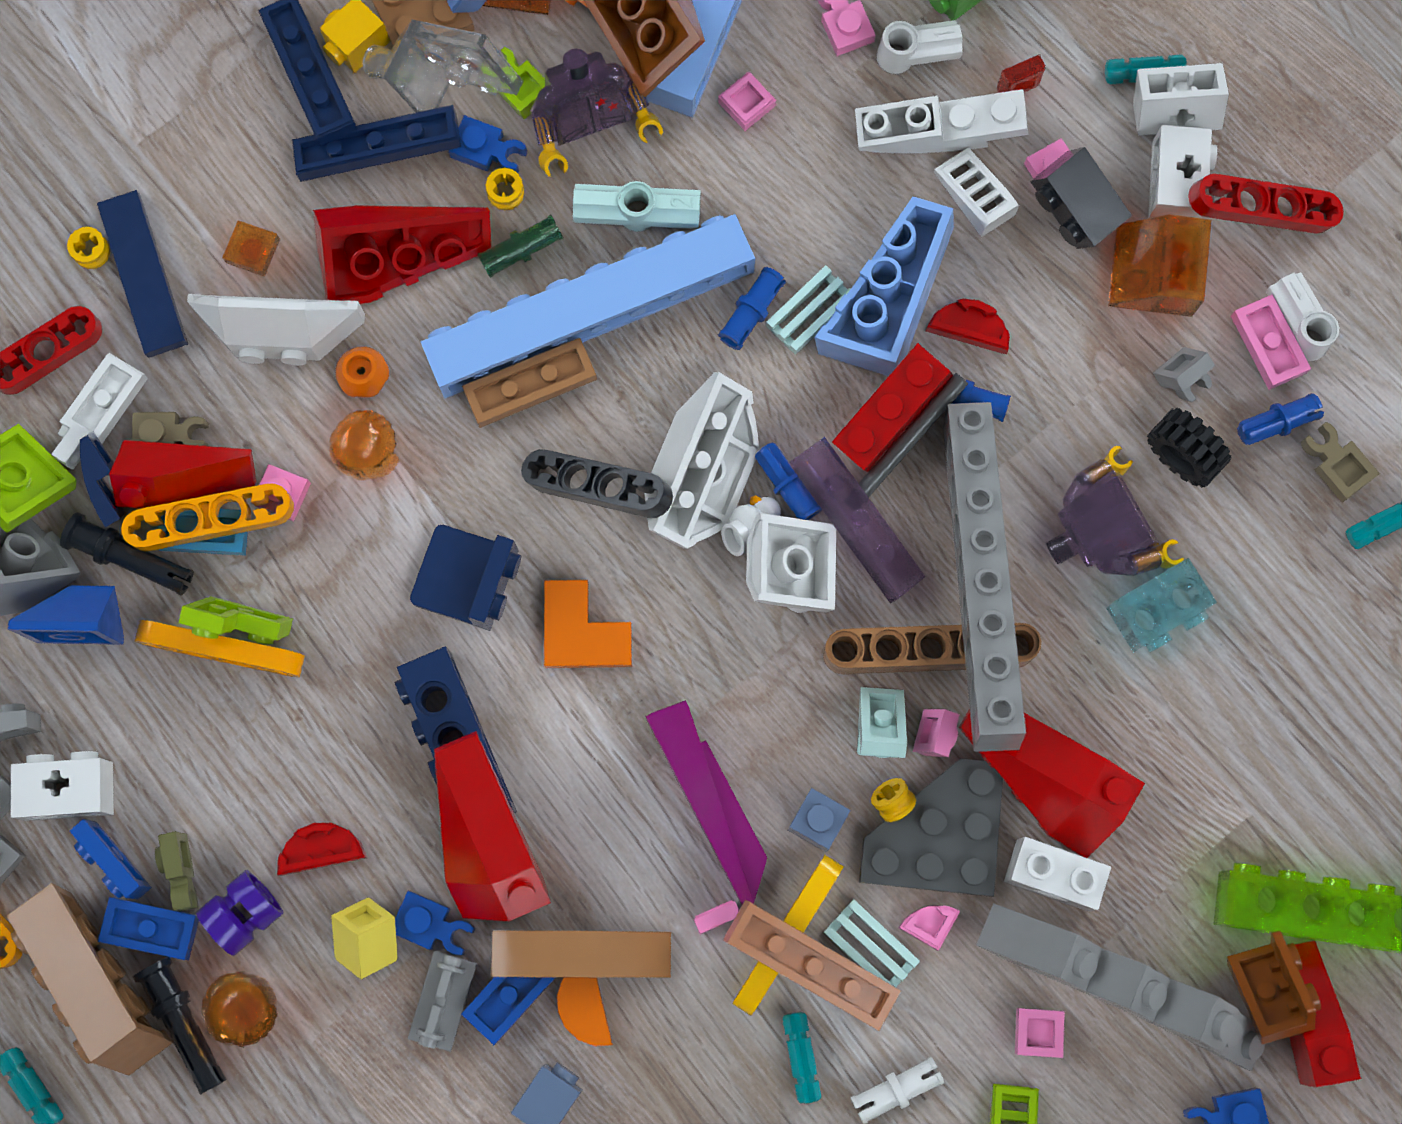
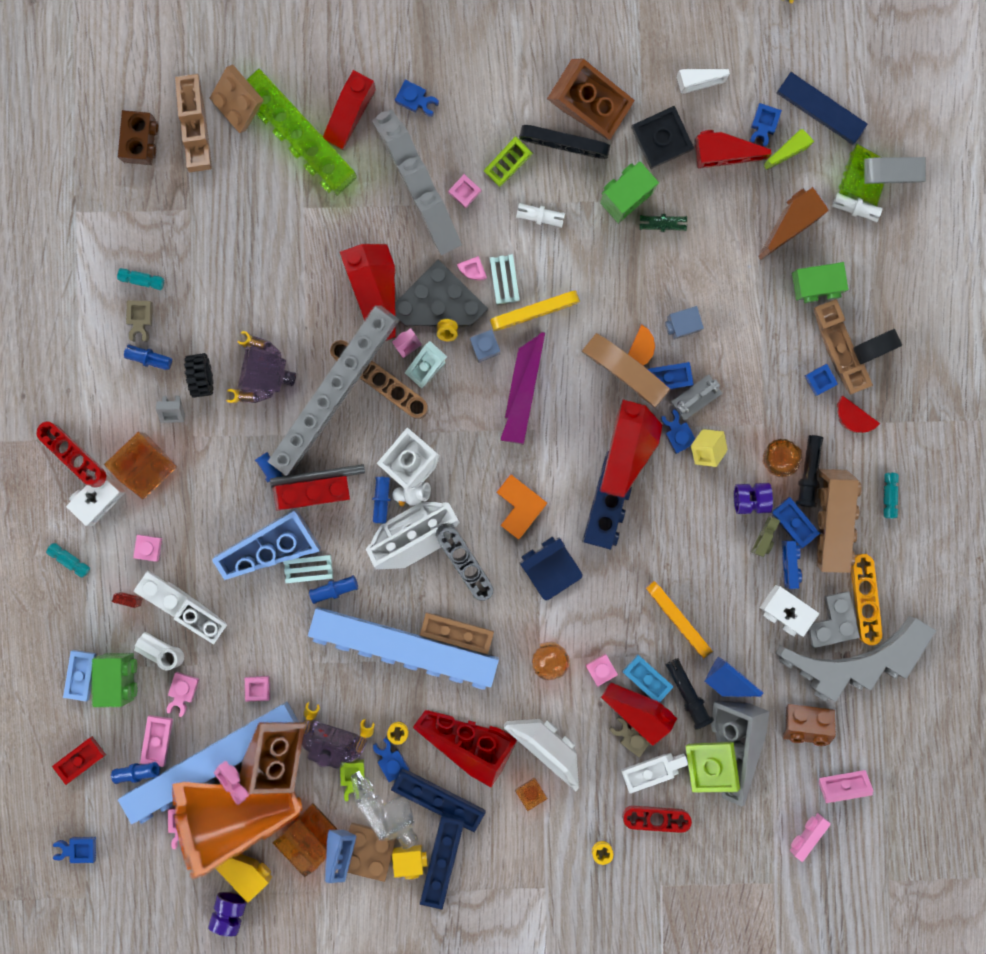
camera: 150 degrees left, 10 degrees up
(96, 465) = (673, 740): dark blue slope -> none
(142, 274) = (587, 821): dark blue tile -> none
(207, 510) = (641, 681): light orange beam -> none
(218, 616) = (669, 632): lime plate -> none
(319, 847) = (699, 501): red tile -> none
(362, 385) = (522, 690): orange plate -> none
(520, 246) = (412, 699): clear green pin -> none
(664, 206) = (358, 688): light aqua piece -> none
(716, 916) = (558, 340): bright pink tile -> none
(801, 1057) = (568, 258): teal axle -> none
(811, 965) = (536, 289): nougat plate -> none
(857, 520) = (365, 458): clear purple tile -> none
(971, 323) = (243, 507): red tile -> none
(981, 221) = (200, 556): white slope -> none
(1057, 874) = (405, 246): white brick -> none
(1080, 199) = (150, 522): black brick -> none
(1157, 600) = (266, 325): clear light blue brick -> none
(1180, 97) = (66, 532): white brick -> none
(1270, 342) = (122, 394): bright pink plate -> none
(1275, 990) = (357, 130): dark orange bracket -> none
(1304, 314) = (98, 396): white piece -> none

